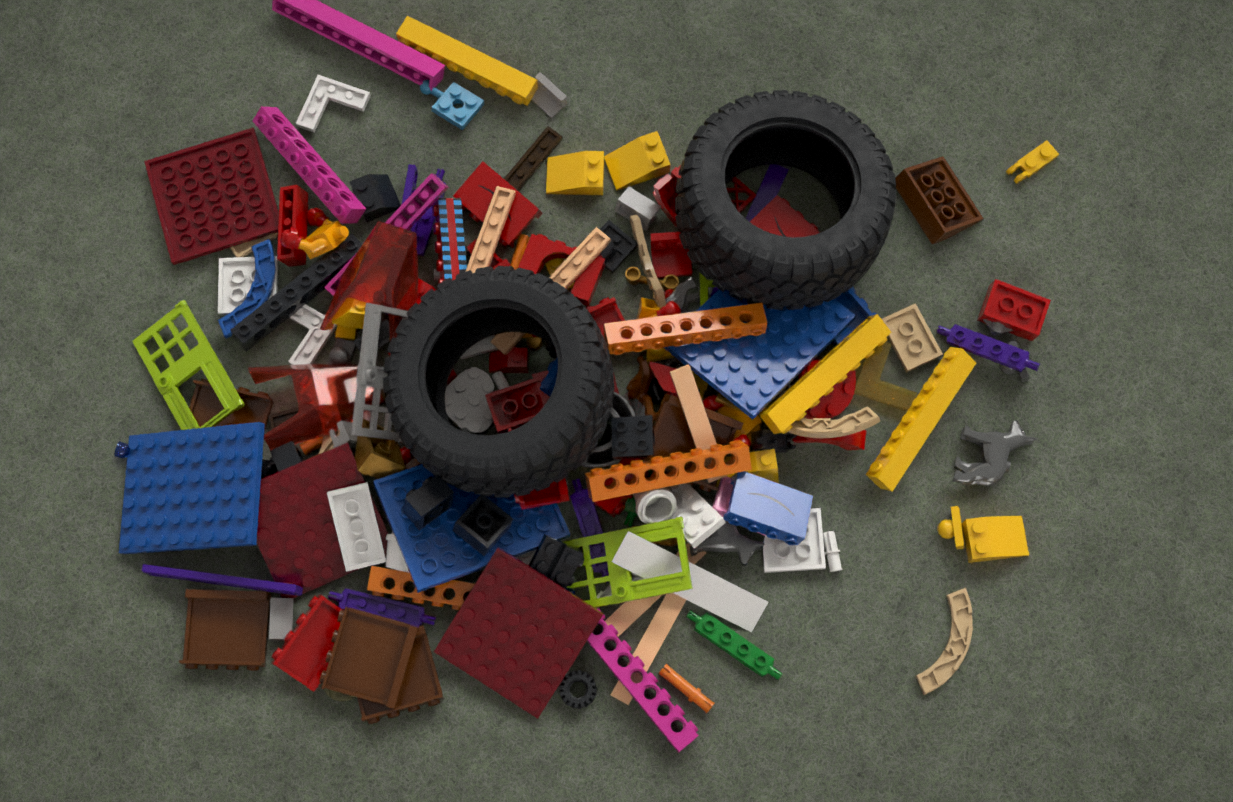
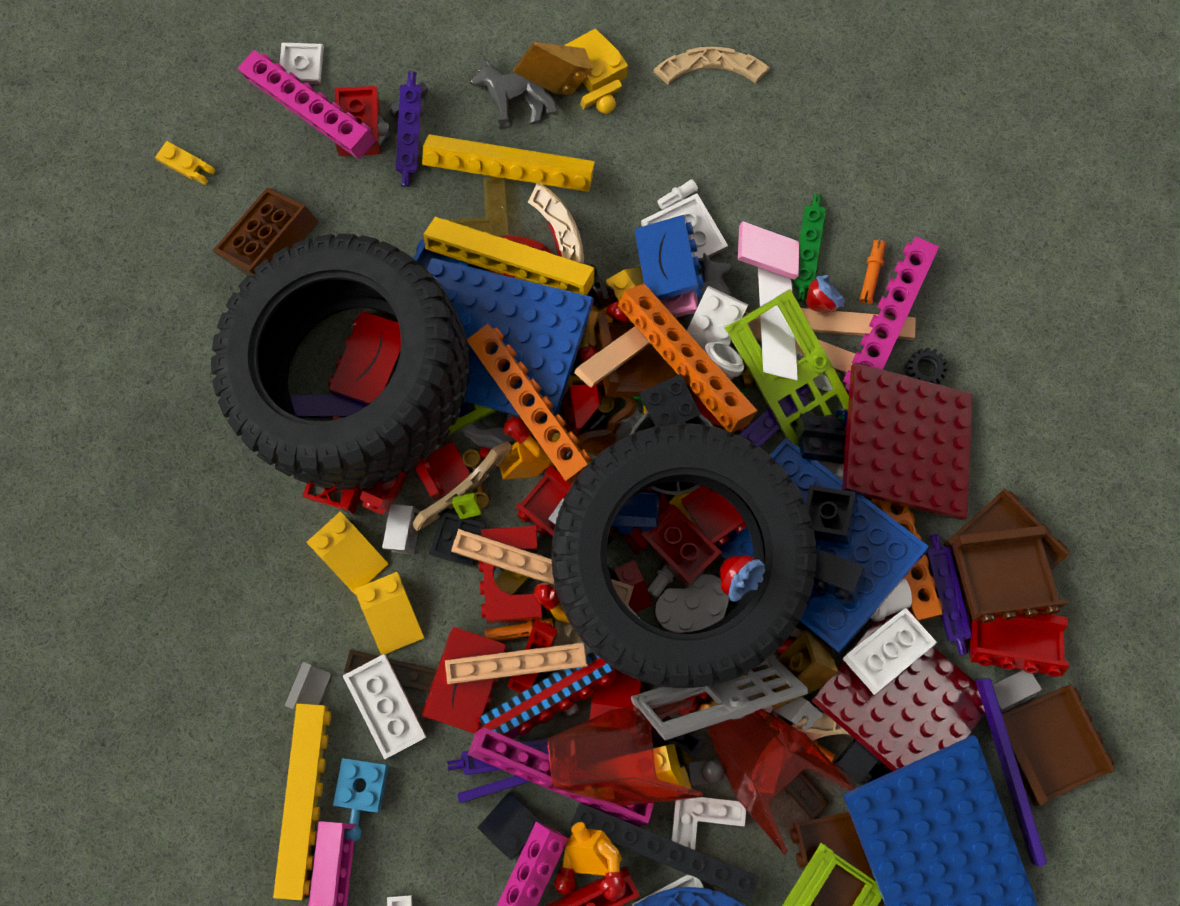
camera: 120 degrees left, 0 degrees up
(450, 395) = (740, 576): none -> hair
(506, 142) = (384, 706): none -> white plate
(631, 259) = (467, 506): none -> lime plate
(681, 631) = (823, 295): none -> hair
(742, 600) = (768, 250): none -> bright pink tile
(912, 338) = (428, 200): tan plate -> none
(992, 490) = (554, 67): none -> pearl gold slope
(1042, 269) = (307, 104): none -> dark pink brick
(1093, 288) = (303, 61): none -> white tile

